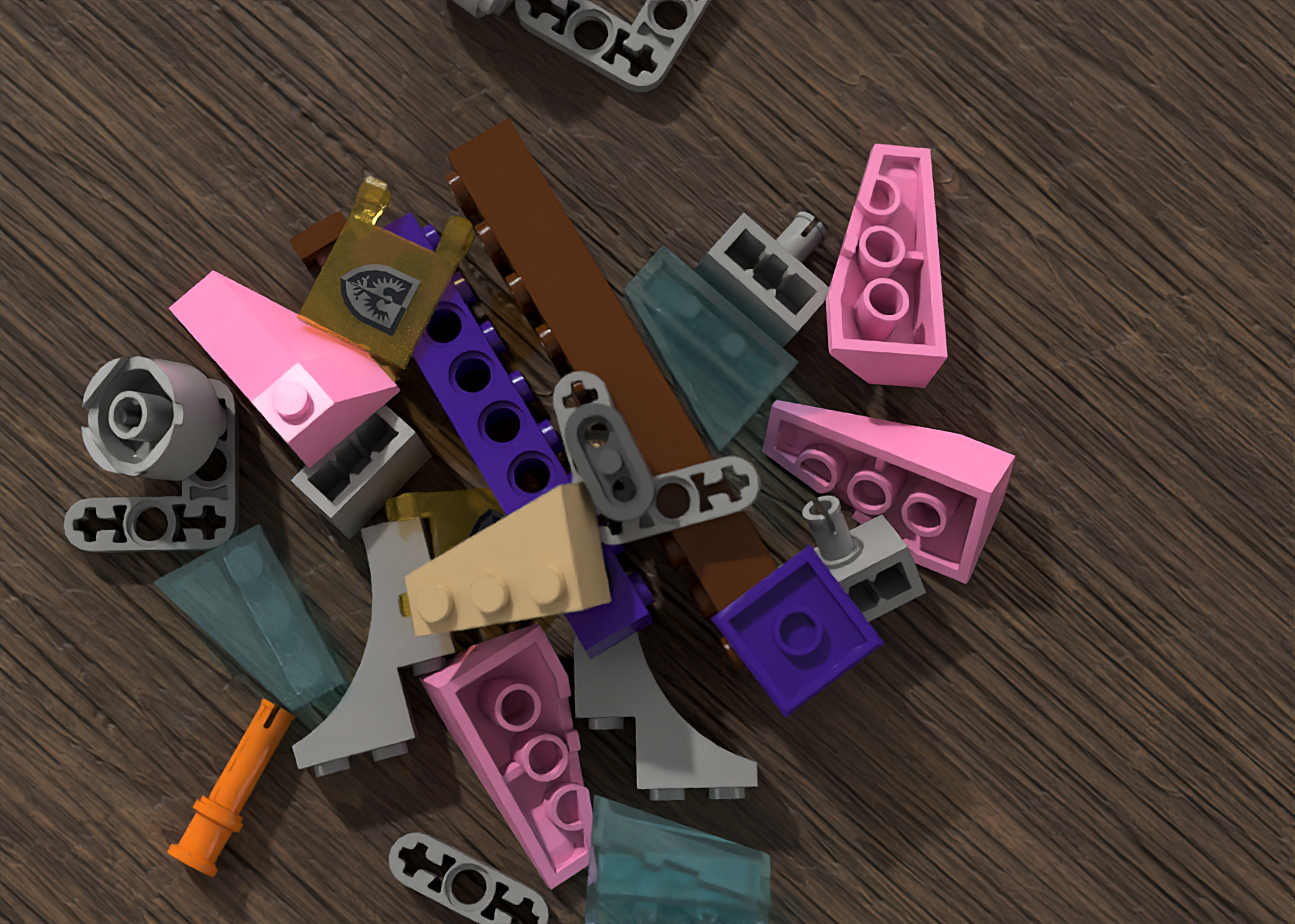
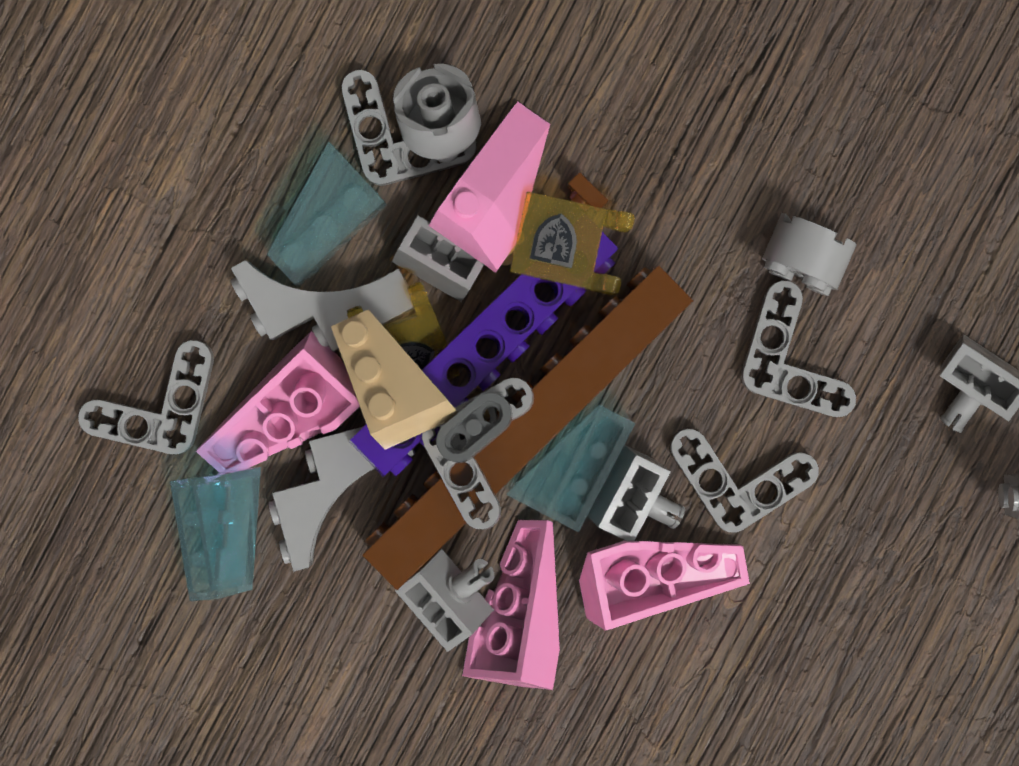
camera: 80 degrees right, 5 degrees up
(219, 813) = (191, 222): orange pin -> none
(797, 631) = (396, 576): dark purple tile -> none
(803, 126) = (744, 494): none -> light grey beam

